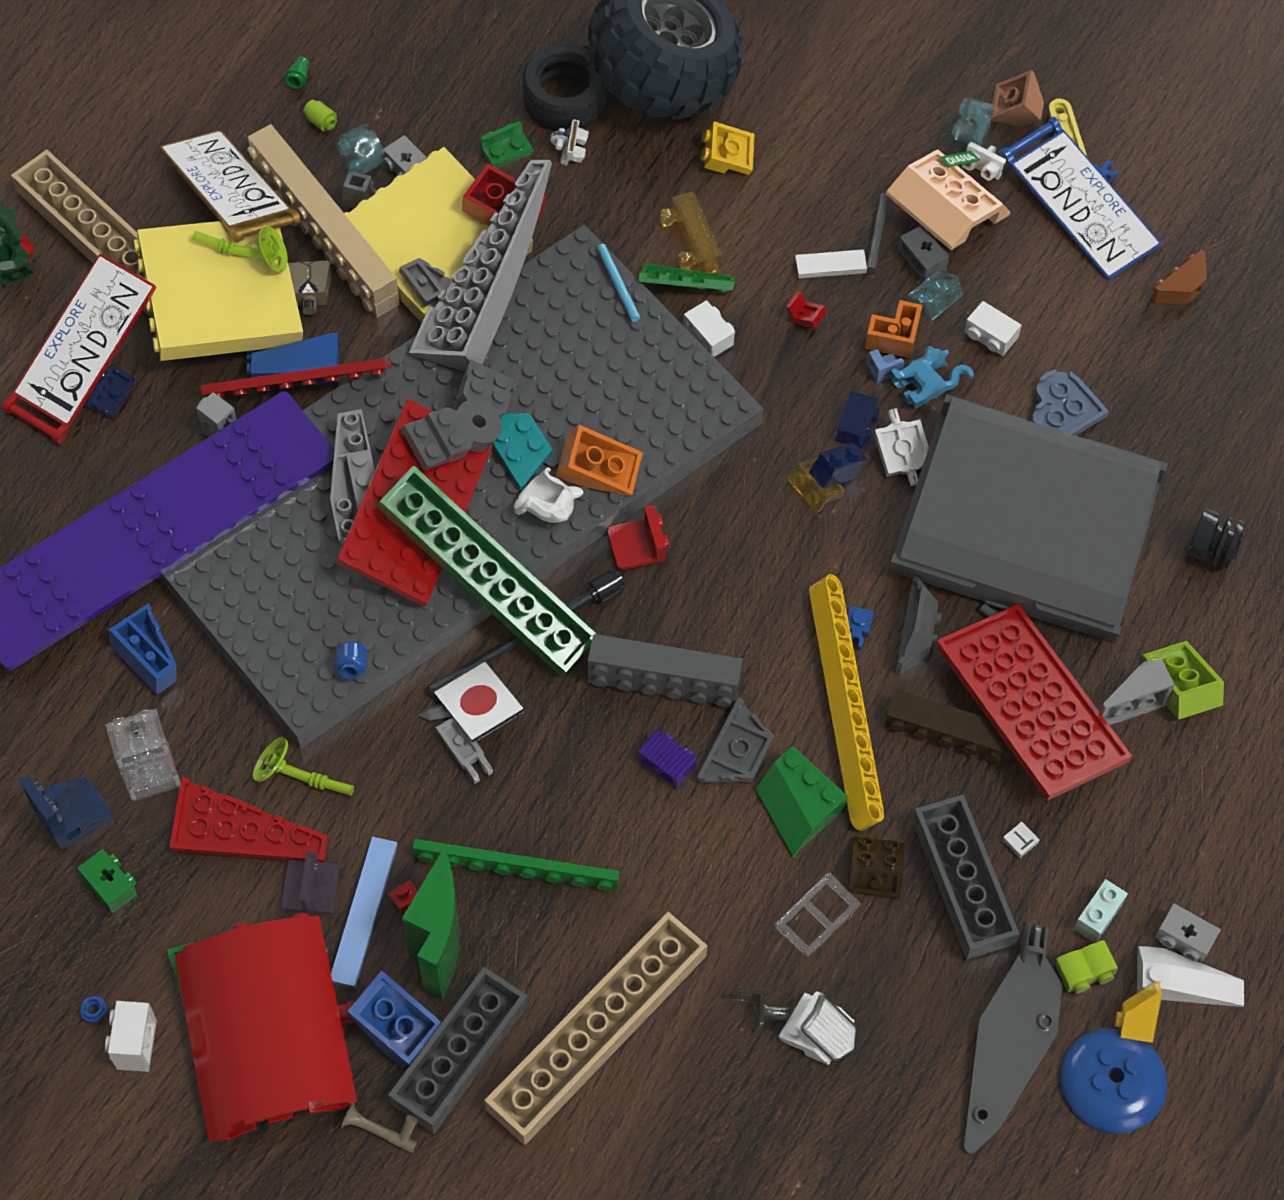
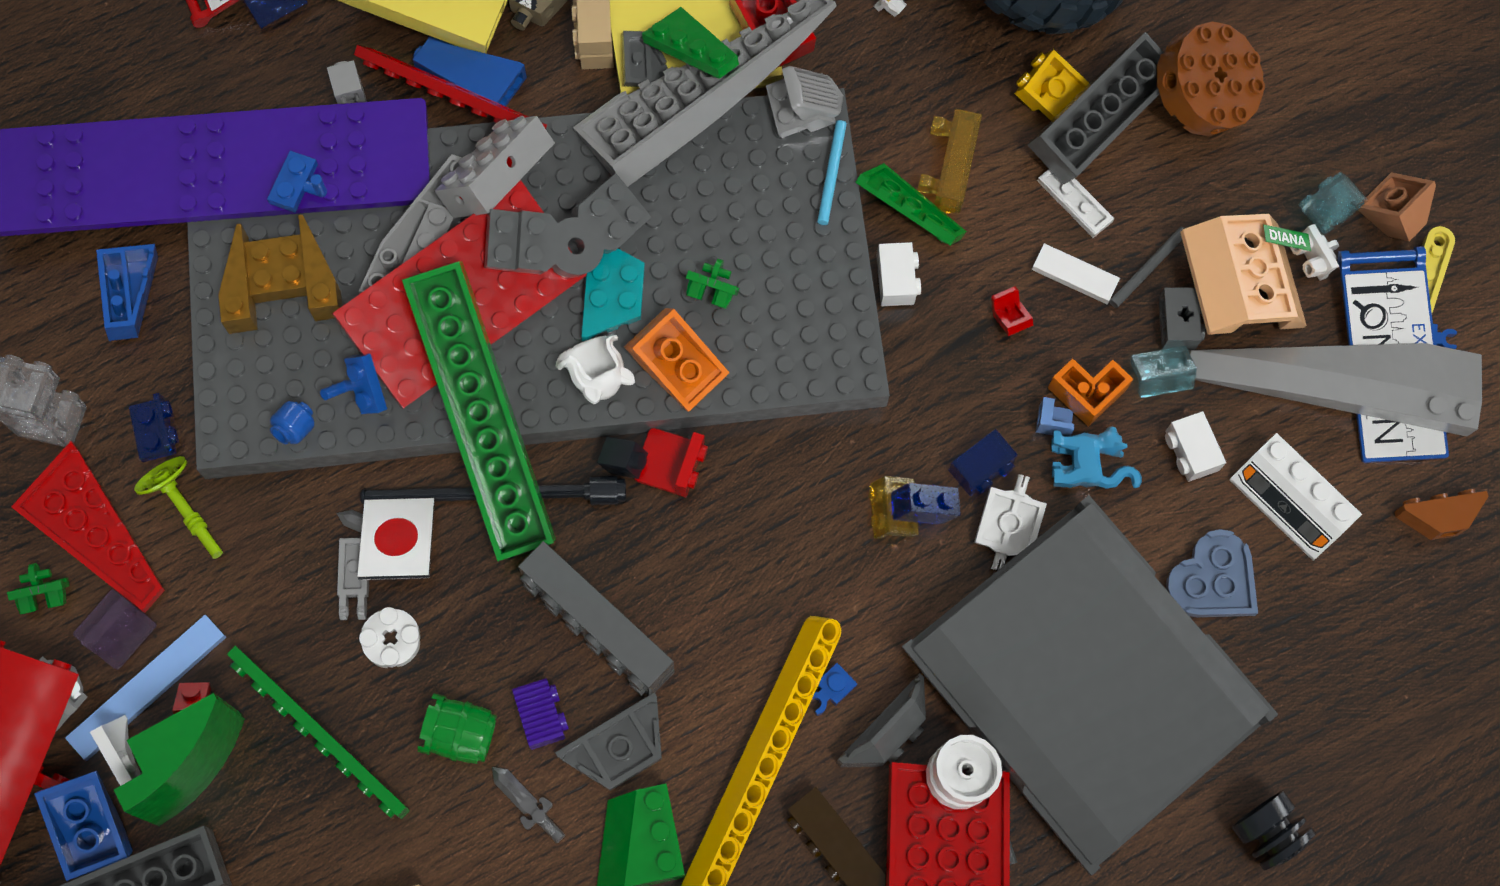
camera: 30 degrees right, 10 degrees up
(232, 497) = (295, 181): none -> blue plate
(237, 734) = (153, 429): none -> clear blue bracket
(244, 886) = (25, 596): none -> green hips
(266, 563) = (273, 272): none -> pearl gold wedge
(380, 401) = (494, 166): none -> light grey brick
(386, 601) = (363, 383): none -> blue plate
(391, 963) = (113, 744): none -> white plate
(460, 245) = (692, 43): none -> green wing
(521, 760) = (391, 654): none -> white plate
(565, 245) = (804, 101): none -> light grey piece
(599, 399) = (698, 283): none -> green hips
(603, 556) = (622, 457): none -> black brick
(618, 800) = (457, 730): none -> green piece
(700, 825) = (527, 803): none -> flat silver sword
(775, 142) = (1100, 110): none -> dark grey brick
(795, 216) = (1077, 203): none -> white tile
(836, 83) = (1210, 78): none -> dark orange brick
(990, 614) = (947, 768): none -> white wheel
(1080, 324) = (1295, 497): none -> white slope
(1086, 218) = (1390, 382): none -> light grey wedge

